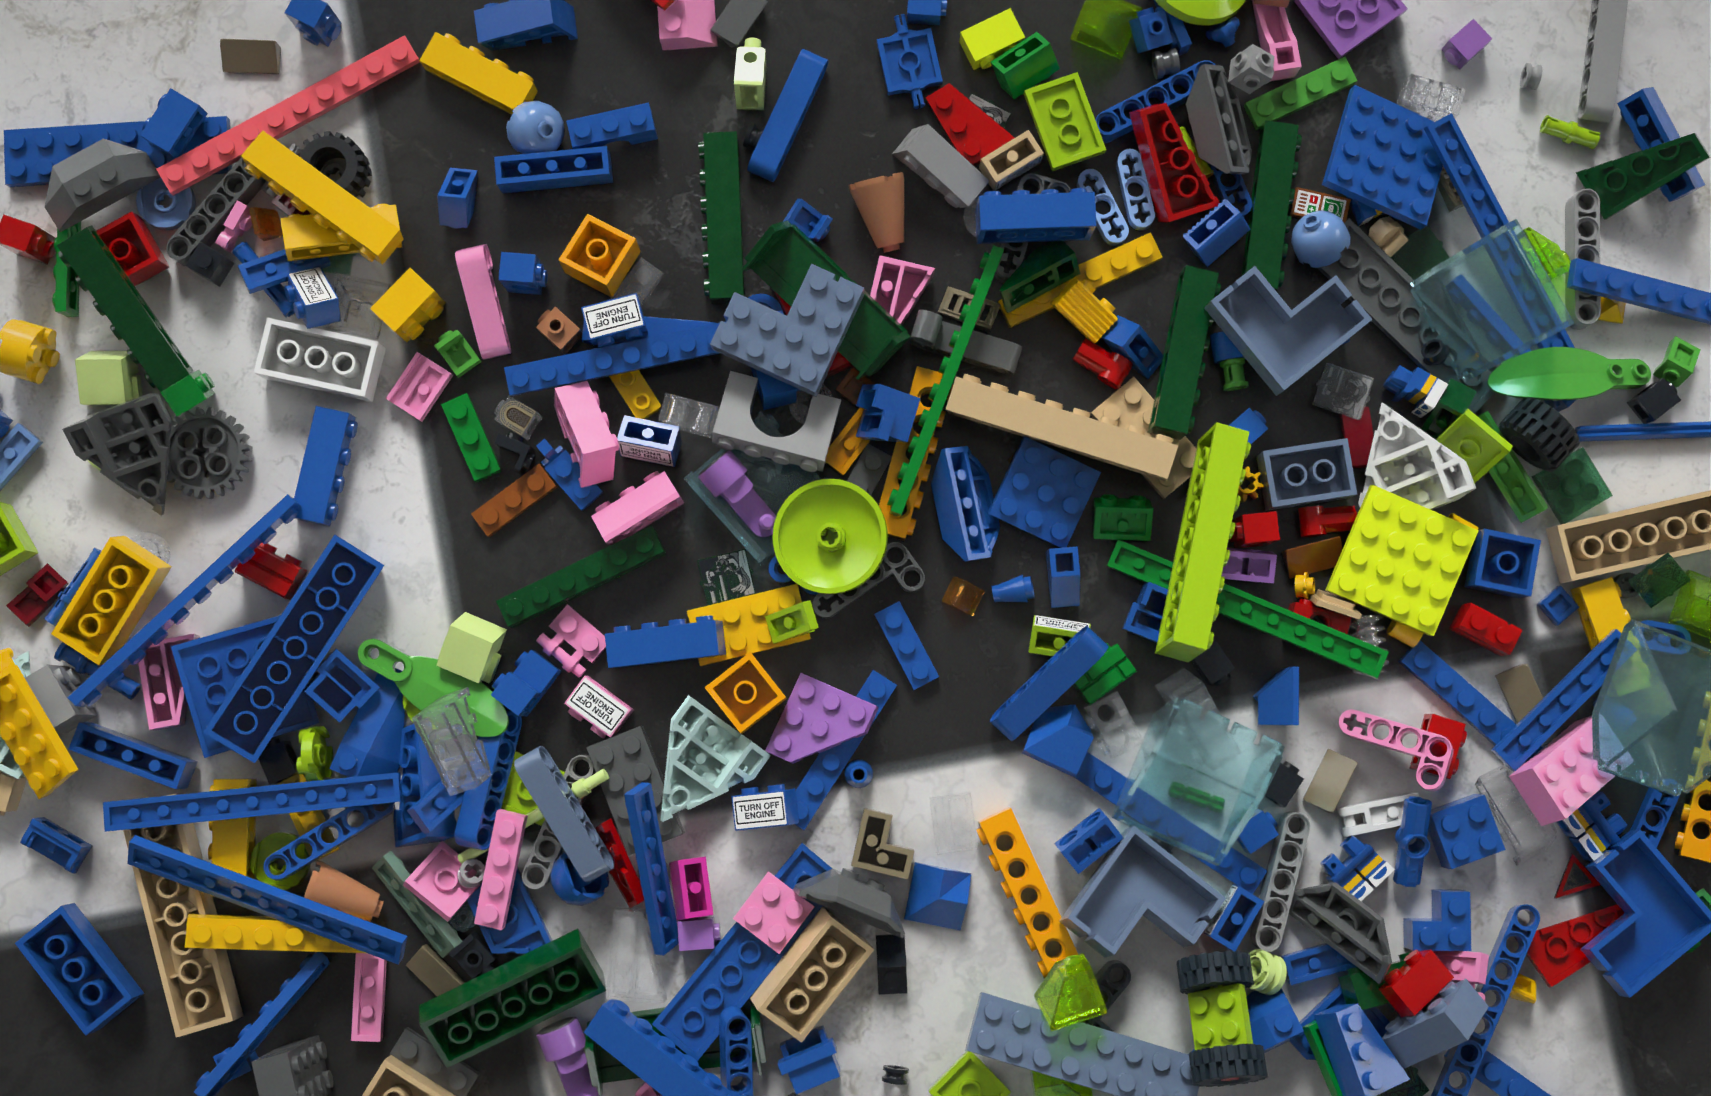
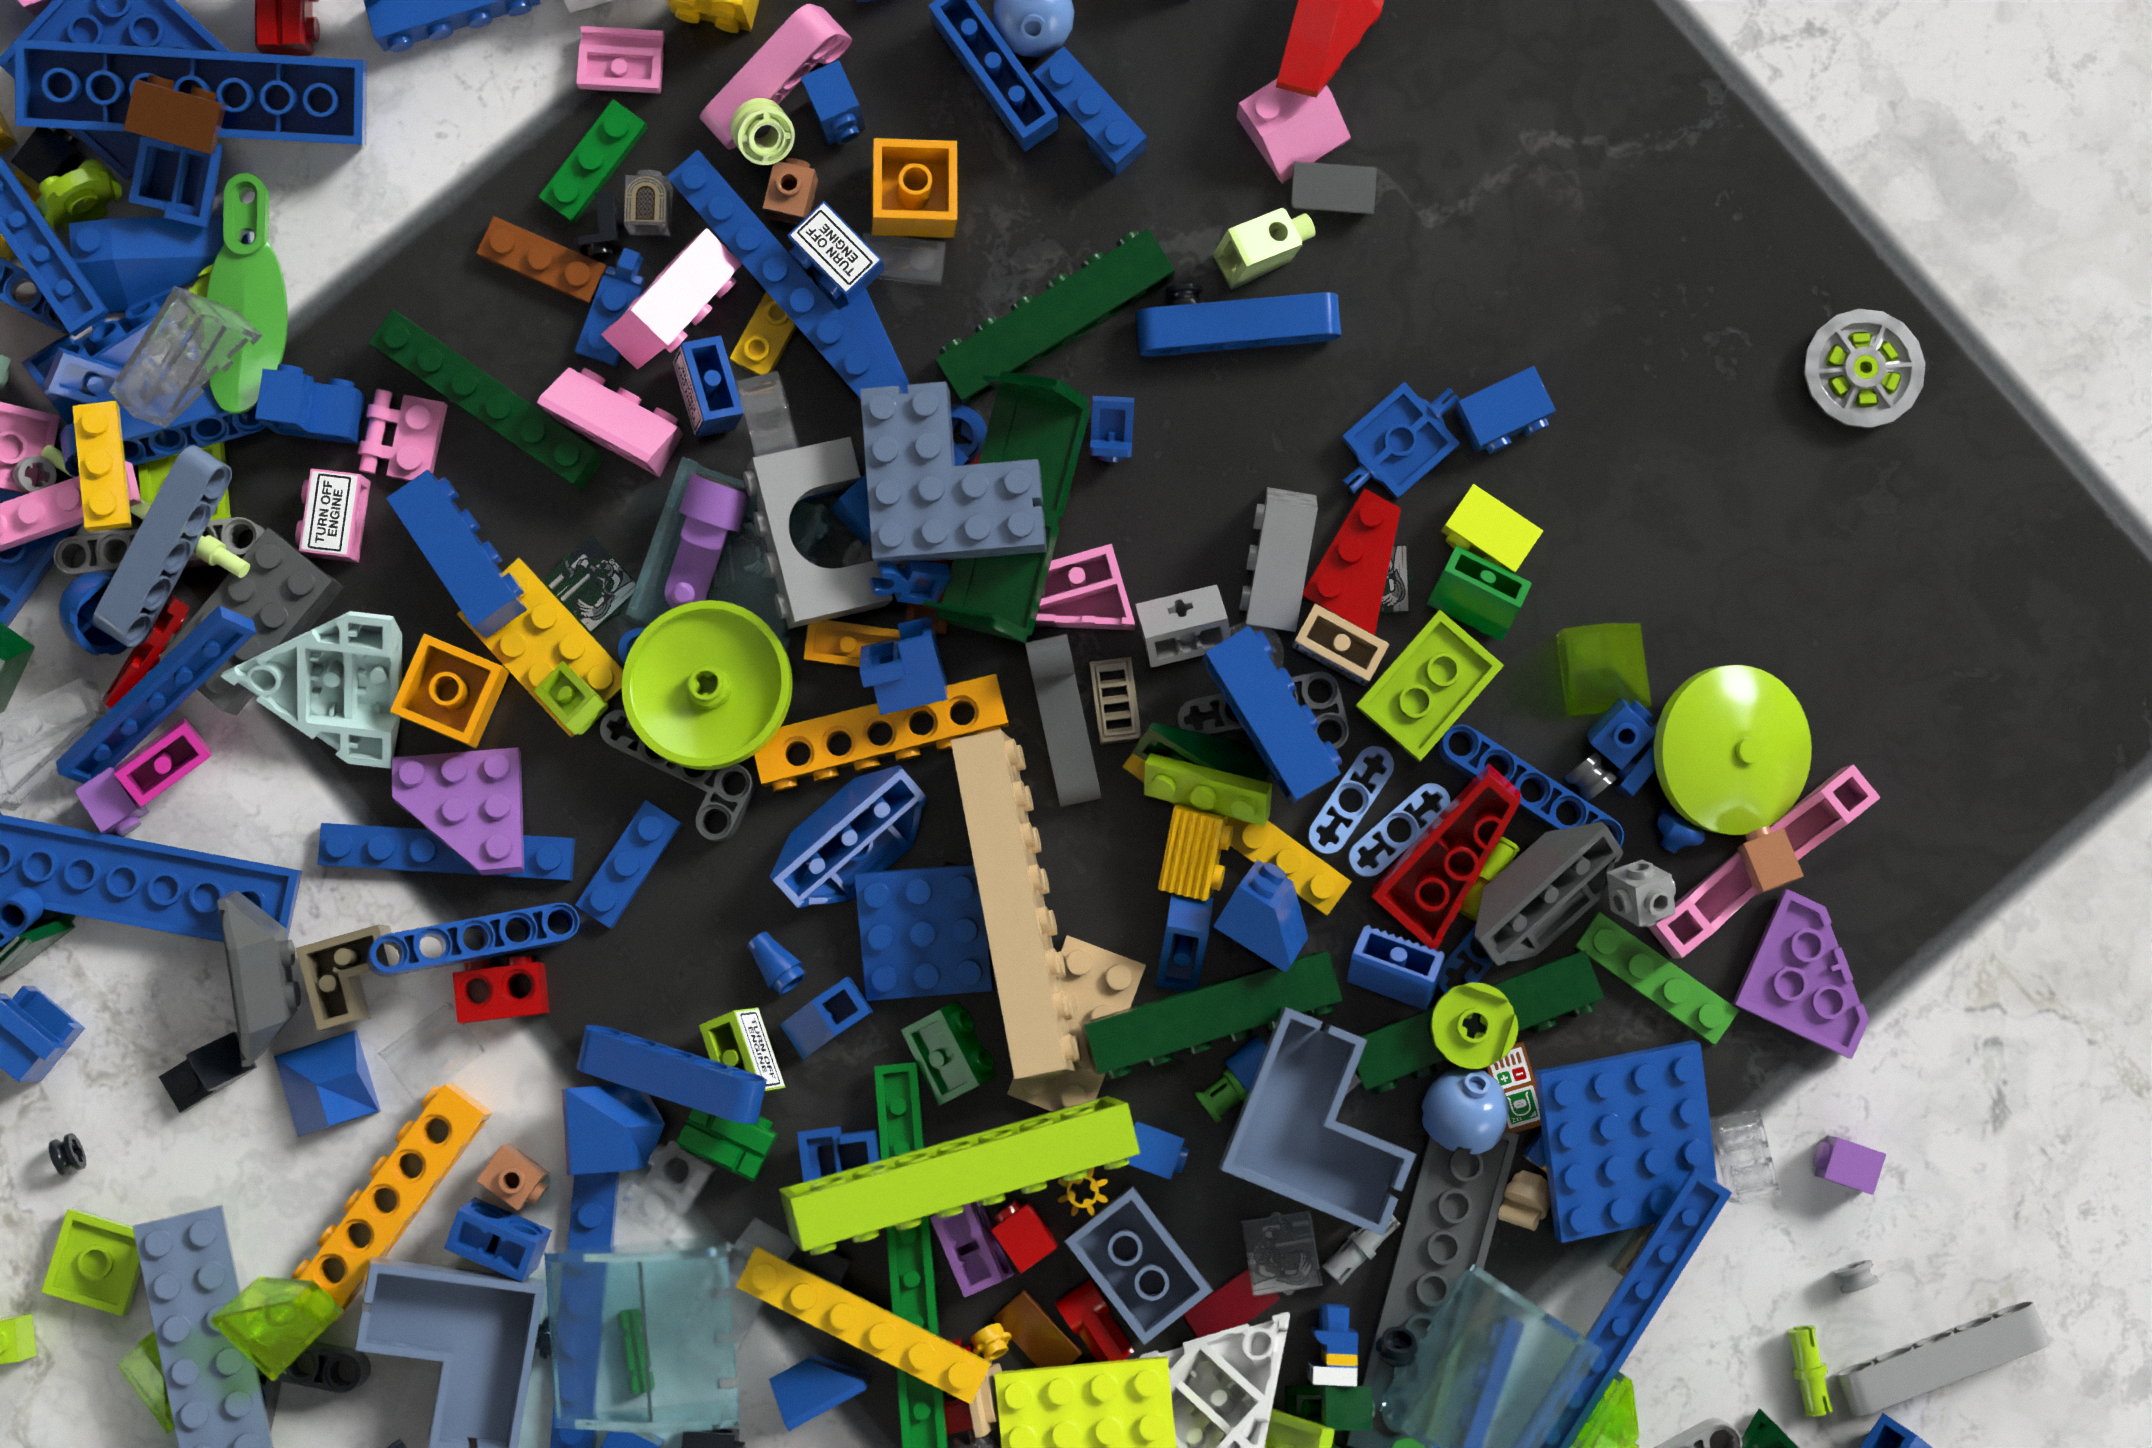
camera: 65 degrees right, 0 degrees up
(306, 661) = (175, 116): none -> reddish brown brick
(457, 352) = (690, 81): bright green bracket -> none
(472, 648) = (320, 314): yellowish green plate -> none
(494, 824) = (102, 466): none -> yellow plate
(526, 321) = (774, 144): none -> yellowish green wheel
(765, 809) = (315, 799): brick -> none
(773, 912) = (186, 881): bright pink plate -> none
(811, 974) = (133, 975): tan brick -> none
(840, 380) = (913, 583): none -> blue plate
(858, 764) = (437, 894): blue cone -> none
(869, 468) = (826, 689): dark grey hinge -> none
(882, 209) = (1180, 514): nougat cone -> none
(904, 770) = (490, 926): none -> blue beam
(940, 391) = (973, 721): green plate -> none
(949, 243) = (1182, 625): none -> light grey brick
(949, 764) = (501, 1001): none -> red brick
(963, 596) = (733, 902): clear orange slope -> none
(1054, 280) = (1207, 789): none -> lime plate
(1056, 812) = (514, 1177): none -> nougat brick
(1109, 367) = (1139, 926): red piece -> none
(1144, 290) = (1266, 916): none -> blue slope
(1260, 647) = (863, 1324): none -> yellow plate
(1276, 189) = (1452, 1037): none -> lime plate
(1364, 348) = (1355, 1251): none -> light grey pin
(1420, 253) = (1527, 1260): clear green piece -> none

